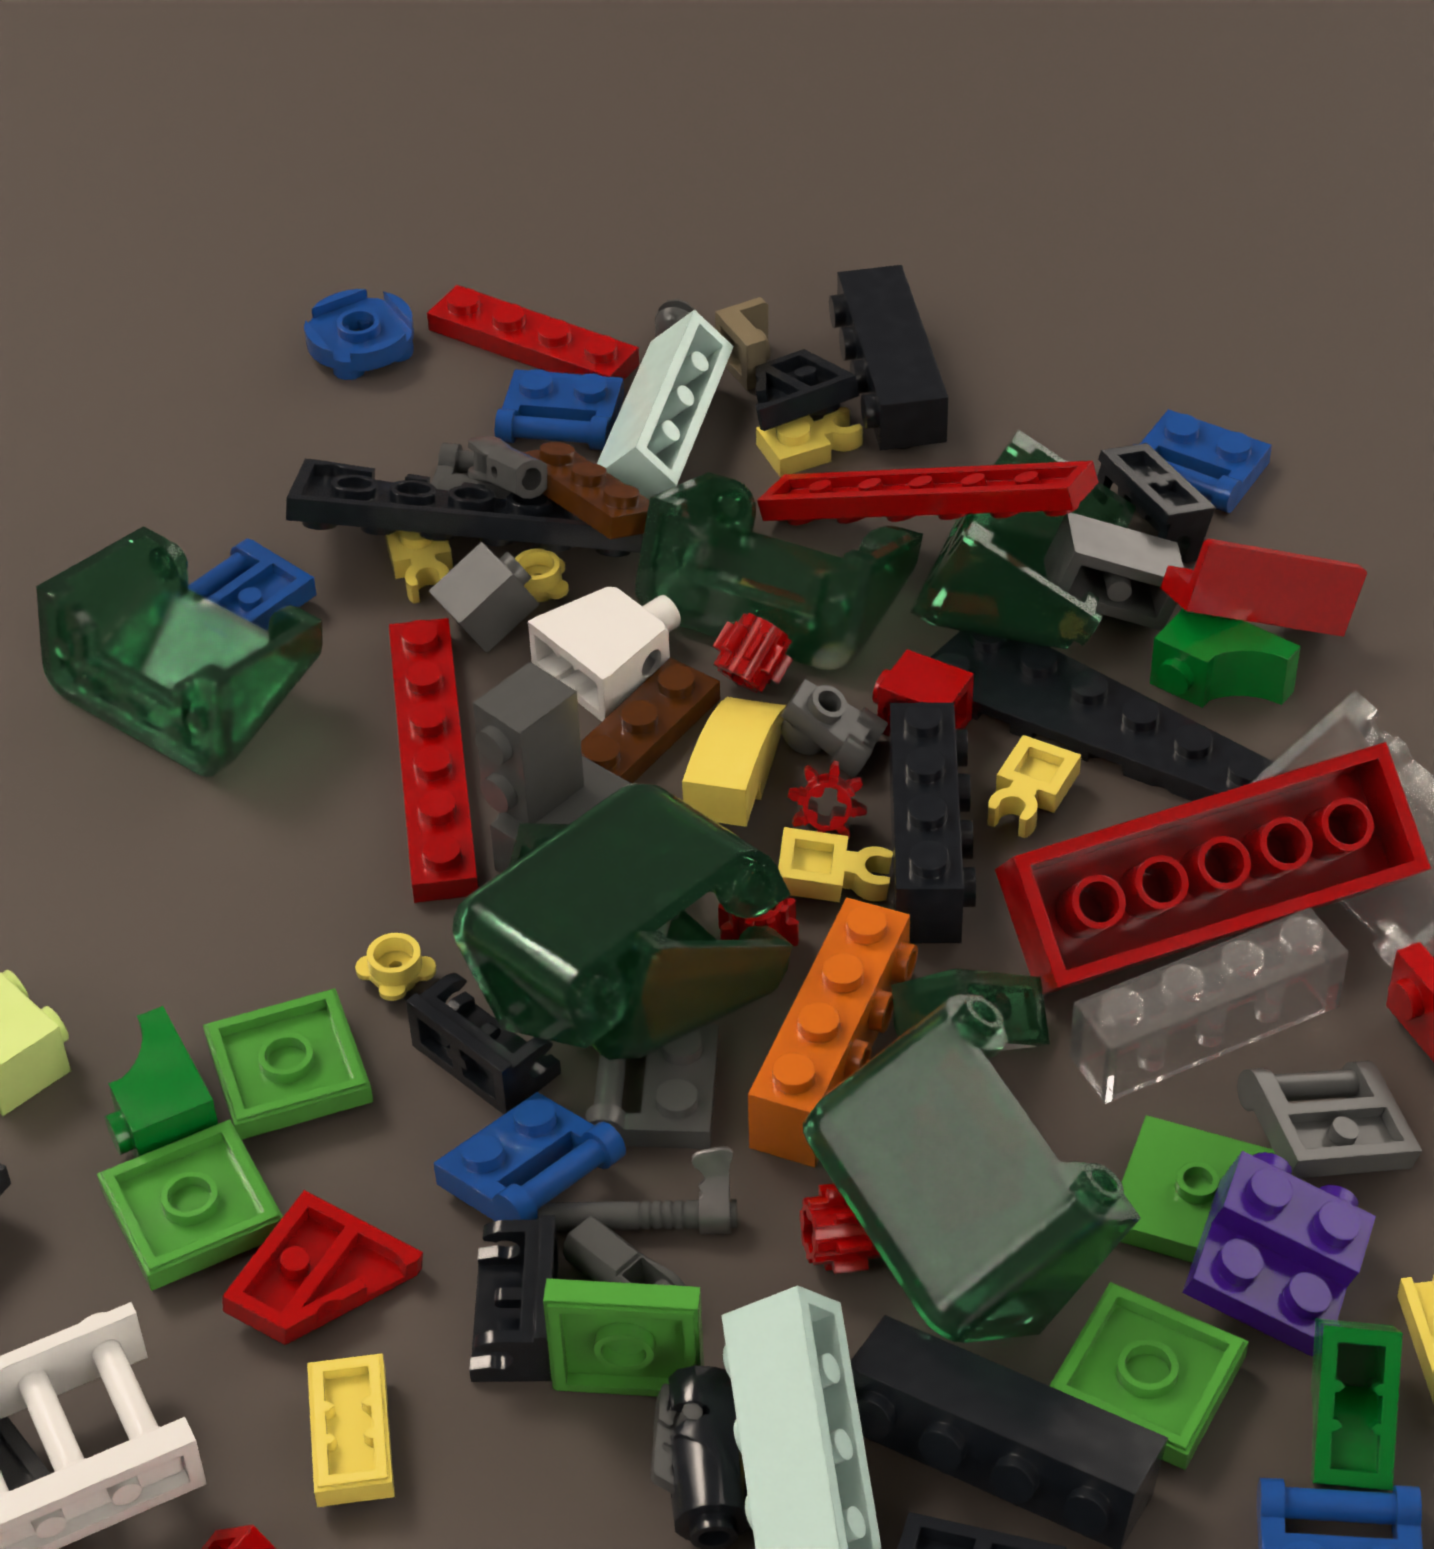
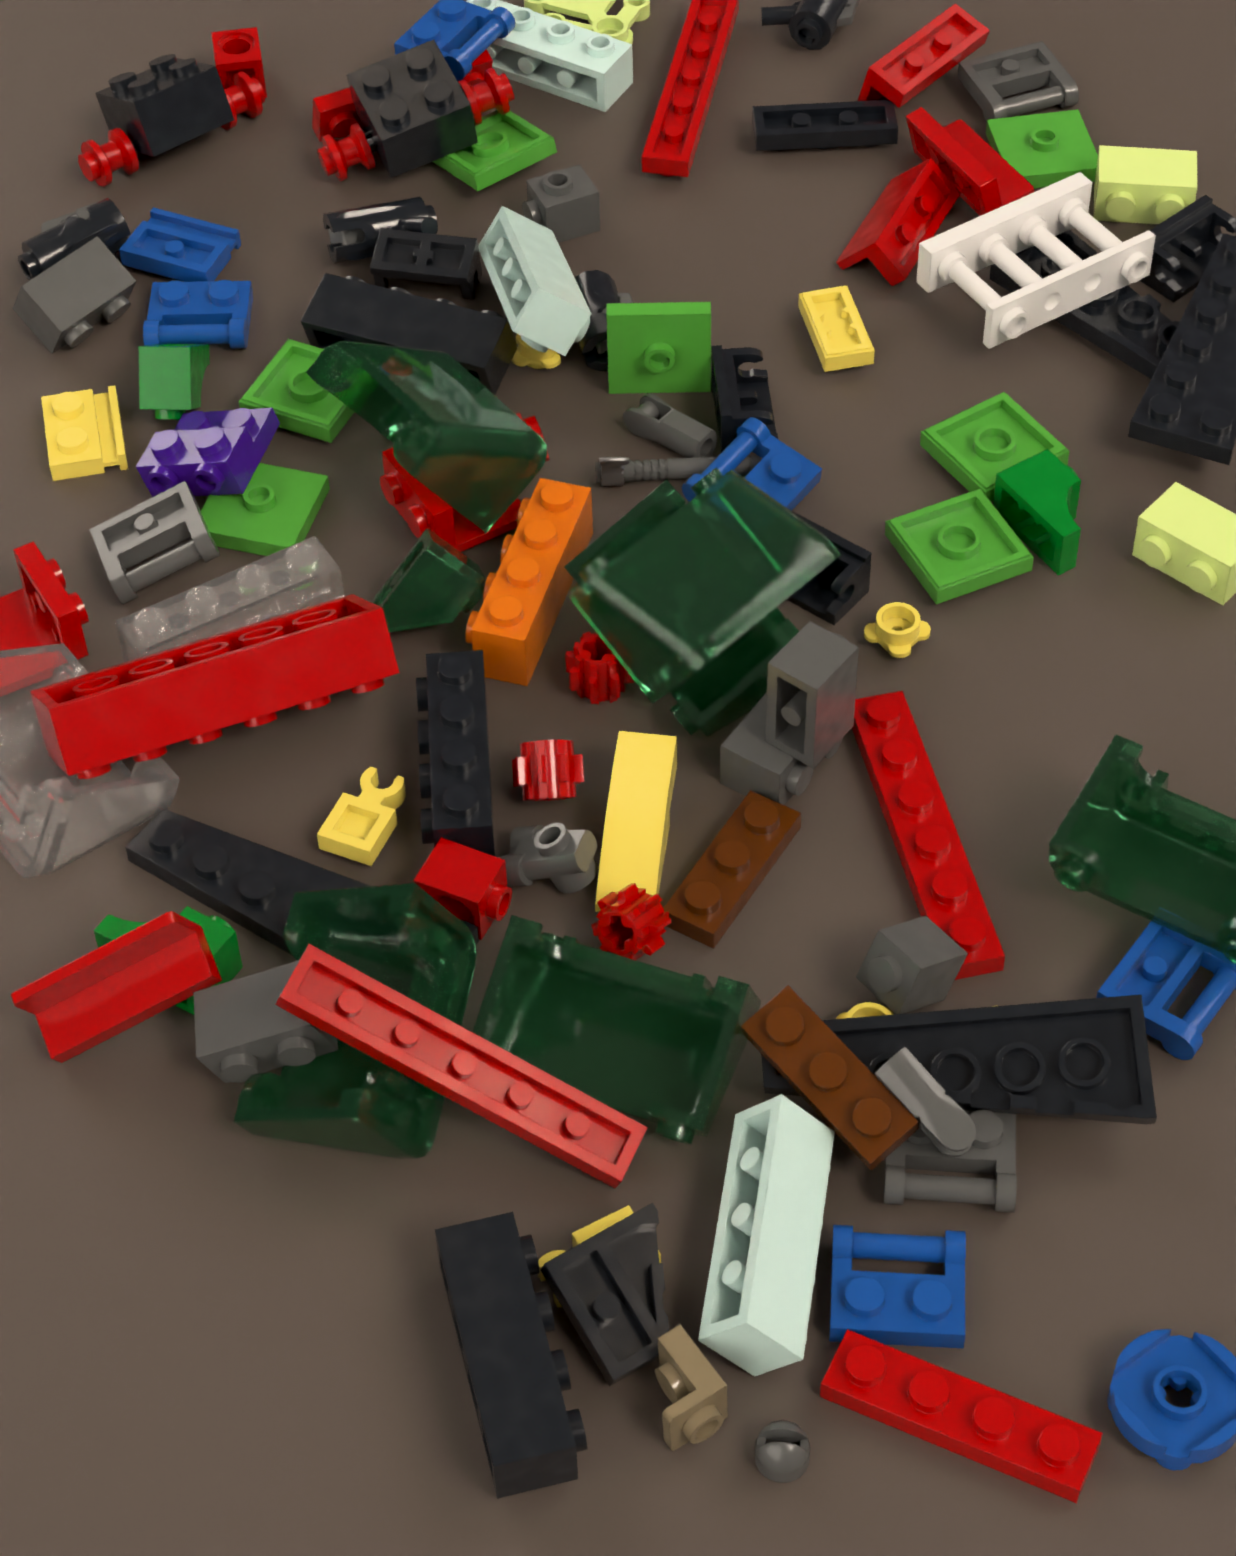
camera: 175 degrees right, 5 degrees up
(316, 1270) = (888, 413): red wing -> none
(603, 645) = (780, 929): white torso -> none
(820, 866) = (546, 721): light yellow plate -> none
(1159, 495) = (214, 1132): black hinge -> none
(1210, 457) = (146, 1266): blue plate -> none

